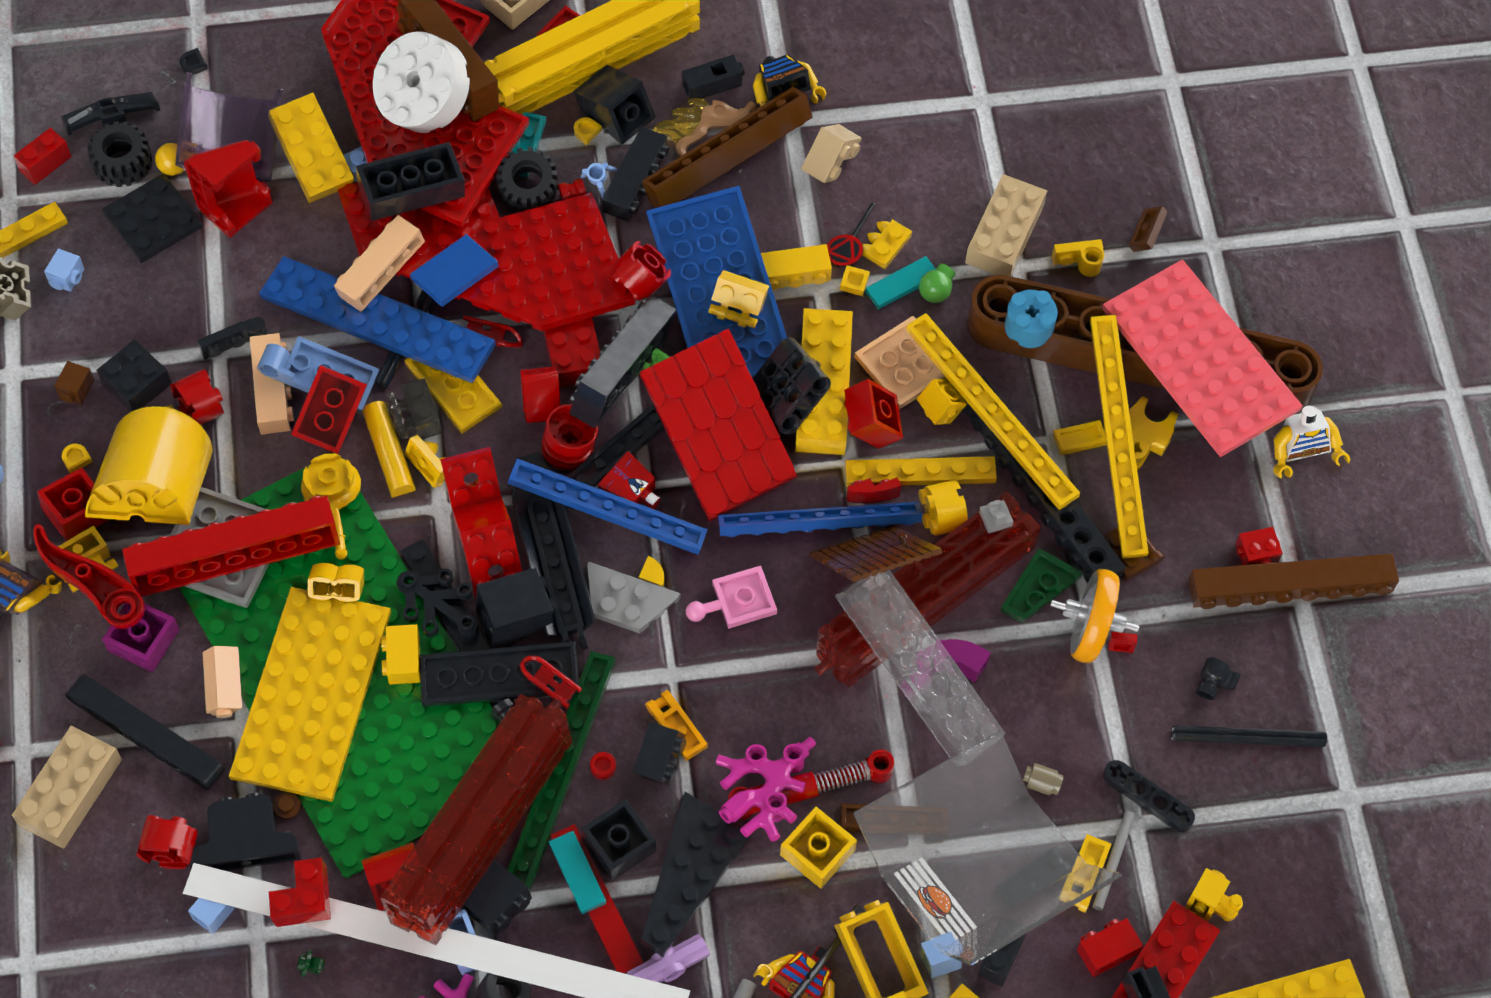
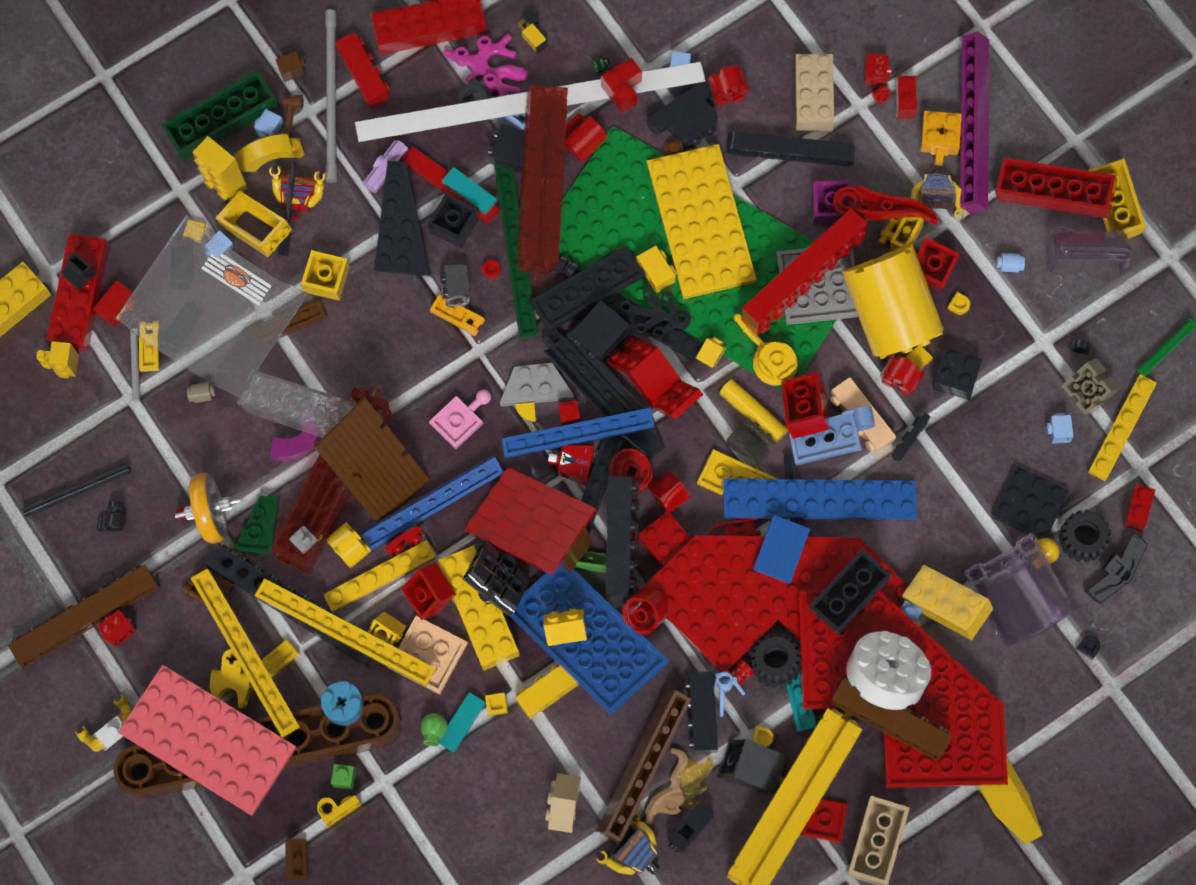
camera: 160 degrees right, 10 degrees up
(74, 383) = (995, 350): reddish brown brick -> none
(222, 681) = (761, 198): light nougat brick -> none
(227, 185) = (982, 531): red windscreen -> none
(341, 582) = (727, 292): yellow brick -> none
(379, 263) = (837, 529): light nougat brick -> none
(397, 530) = (711, 351): none -> yellow brick
(423, 457) = (712, 412): yellow tile -> none
(544, 677) = (553, 294): red piece -> none
(605, 540) = (569, 412): none -> red brick
(769, 797) = (370, 299): dark pink plant -> none
(815, 783) = (352, 315): red piece -> none
(846, 248) = (517, 730): piece -> none
(887, 243) = (488, 752): yellow plate -> none
(1006, 226) = (403, 805): tan brick -> none
(1061, 276) = (343, 777): none -> bright green brick
(1146, 799) = (129, 413): black beam -> none

